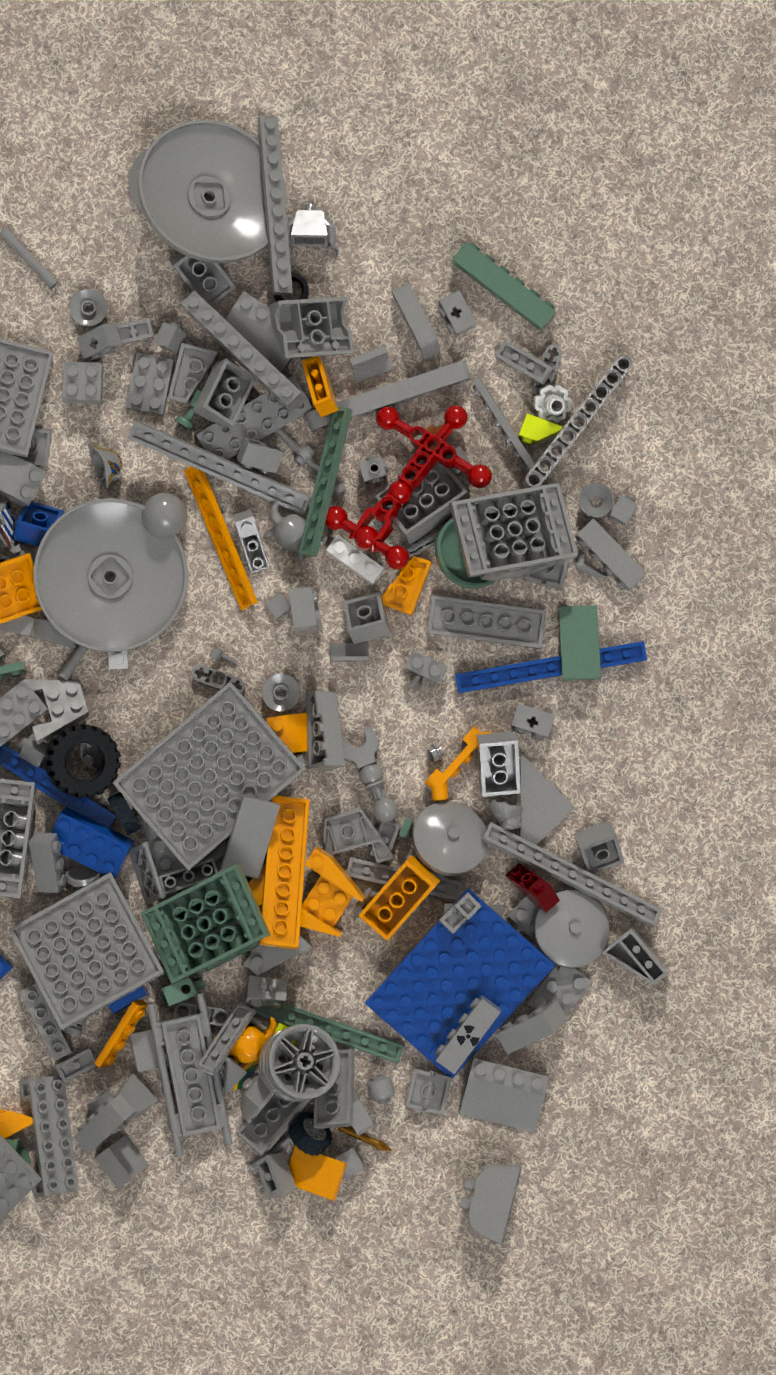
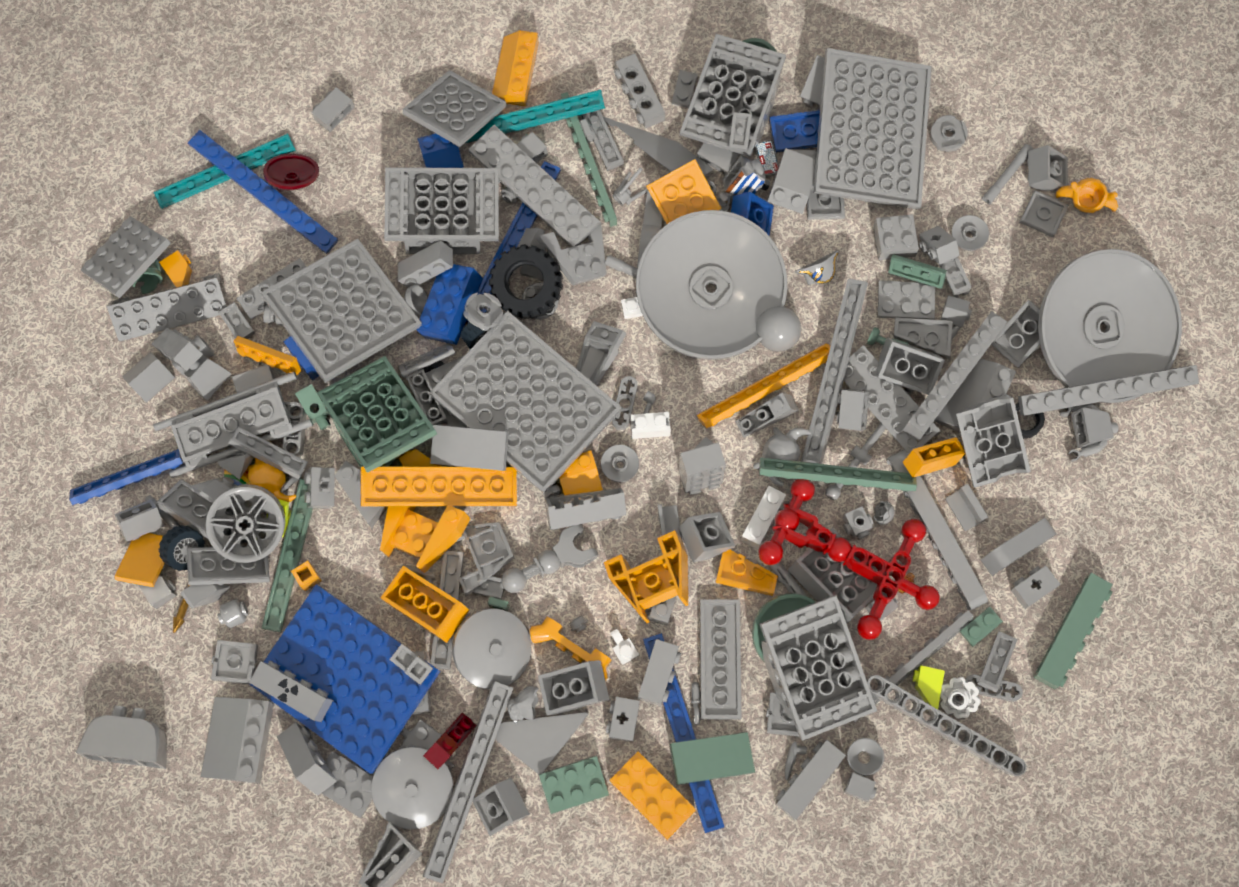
camera: 85 degrees right, 10 degrees down
(31, 217) = (1047, 169): none -> light grey slope
(67, 183) = (1089, 195): none -> light orange piece
(76, 230) = (1044, 213): none -> light grey tile
(118, 813) = (479, 319): none -> light grey plate
(123, 368) = (917, 271): none -> sand green tile
(162, 698) = (599, 350): none -> light grey plate
(226, 1188) = (120, 479): none -> blue plate
(246, 657) = (650, 425): none -> white brick
(353, 1013) = (306, 576): none -> light orange brick
(365, 443) = (884, 512): none -> light grey plate
(406, 672) = (655, 579): none -> light orange wedge
(465, 712) = (624, 649): none -> white plate
(487, 371) = (981, 626): none -> sand green plate
(494, 681) = (659, 673): none -> light grey brick
(521, 651) = (695, 700): none -> light grey piece
(586, 776) = (573, 784): none -> sand green plate
(607, 703) = (652, 795): none -> light orange brick

